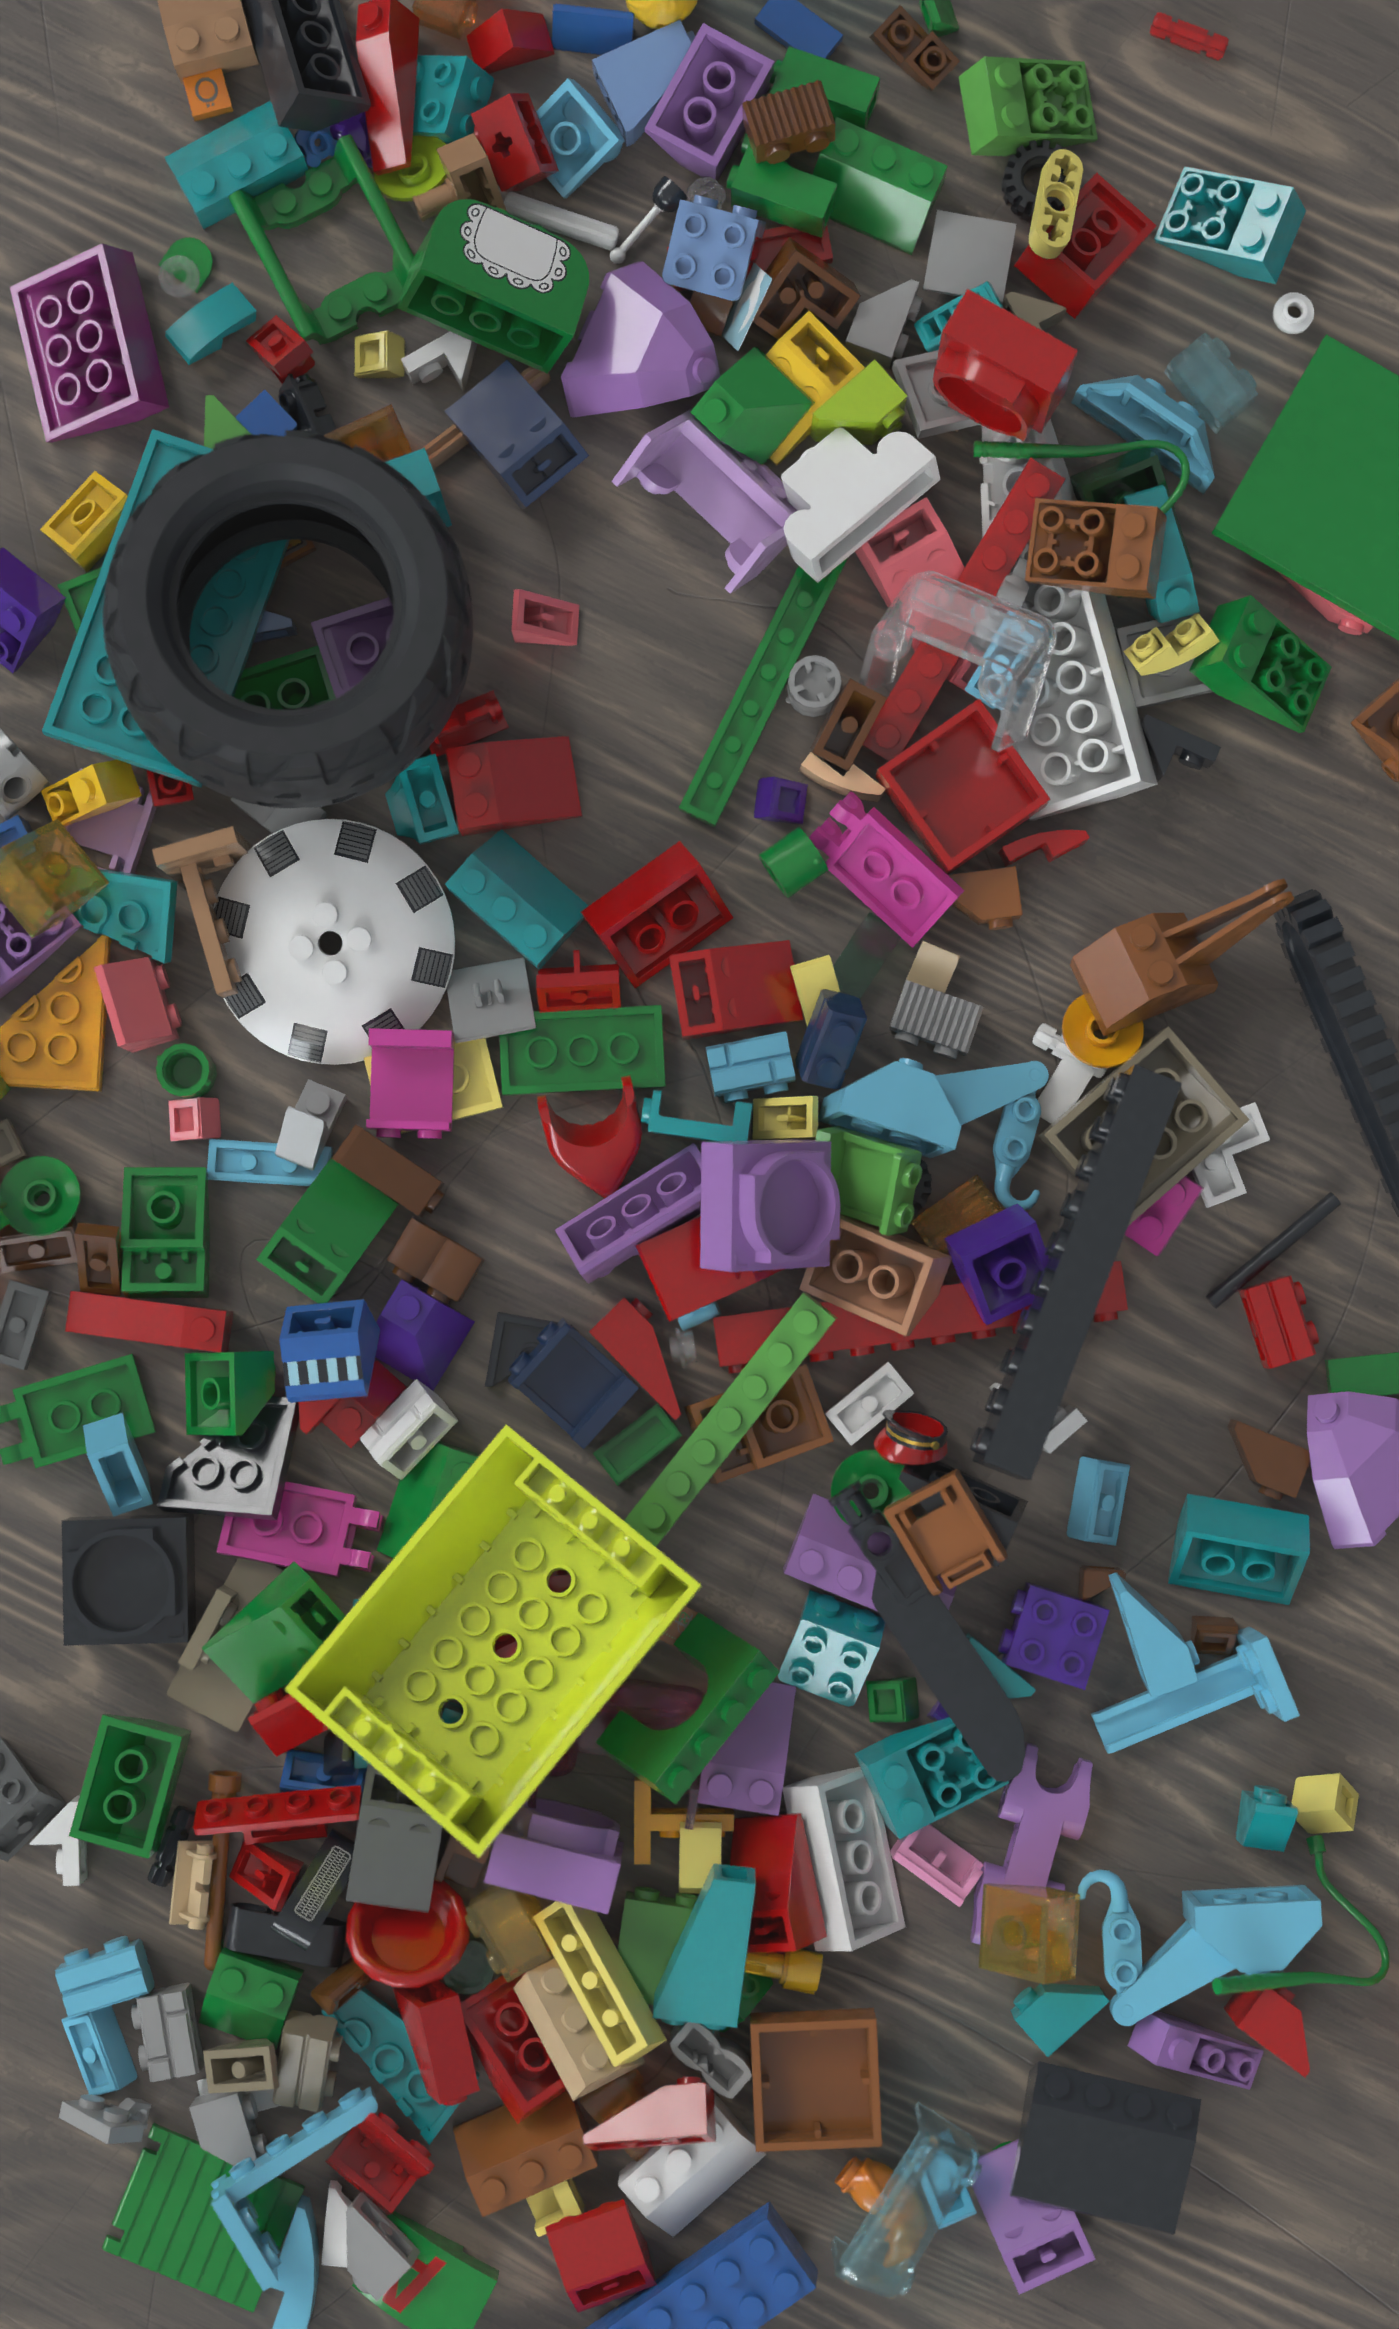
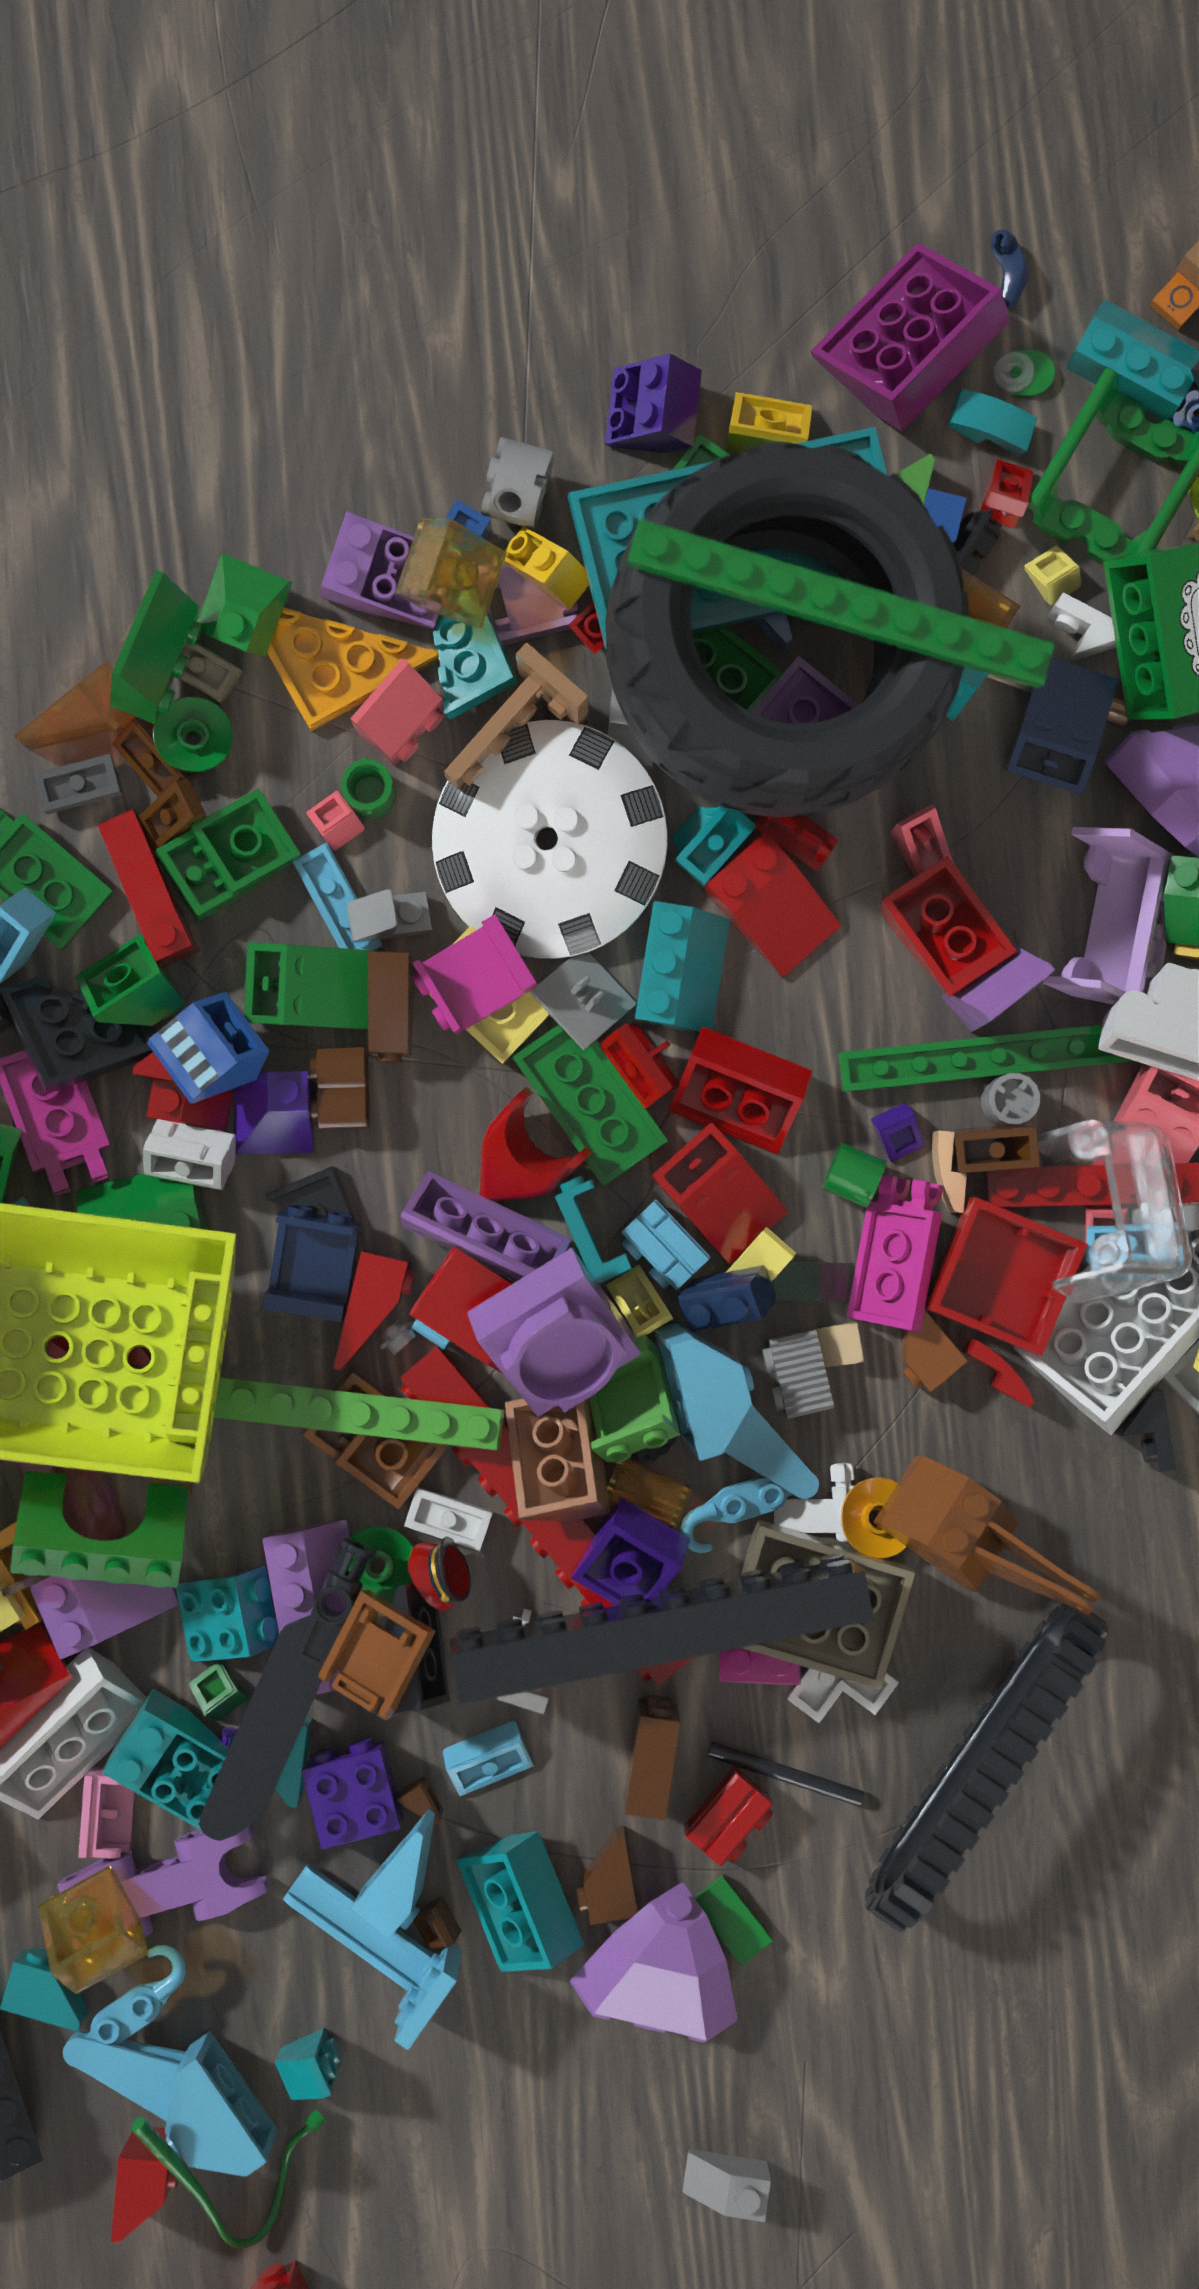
camera: 55 degrees right, 0 degrees up
(83, 216) = (1013, 263): none -> dark blue arm
(298, 560) = (839, 603): none -> green plate
(629, 645) = (946, 927): none -> red slope
(637, 1444) = (296, 1348): green tile -> none
(705, 636) = (998, 989): none -> medium lavender slope
(1185, 1354) = (652, 1758): none -> reddish brown brick
(1195, 2050) = (83, 2126): medium lavender slope -> none
(1325, 1803) = (354, 2107): light yellow panel -> none

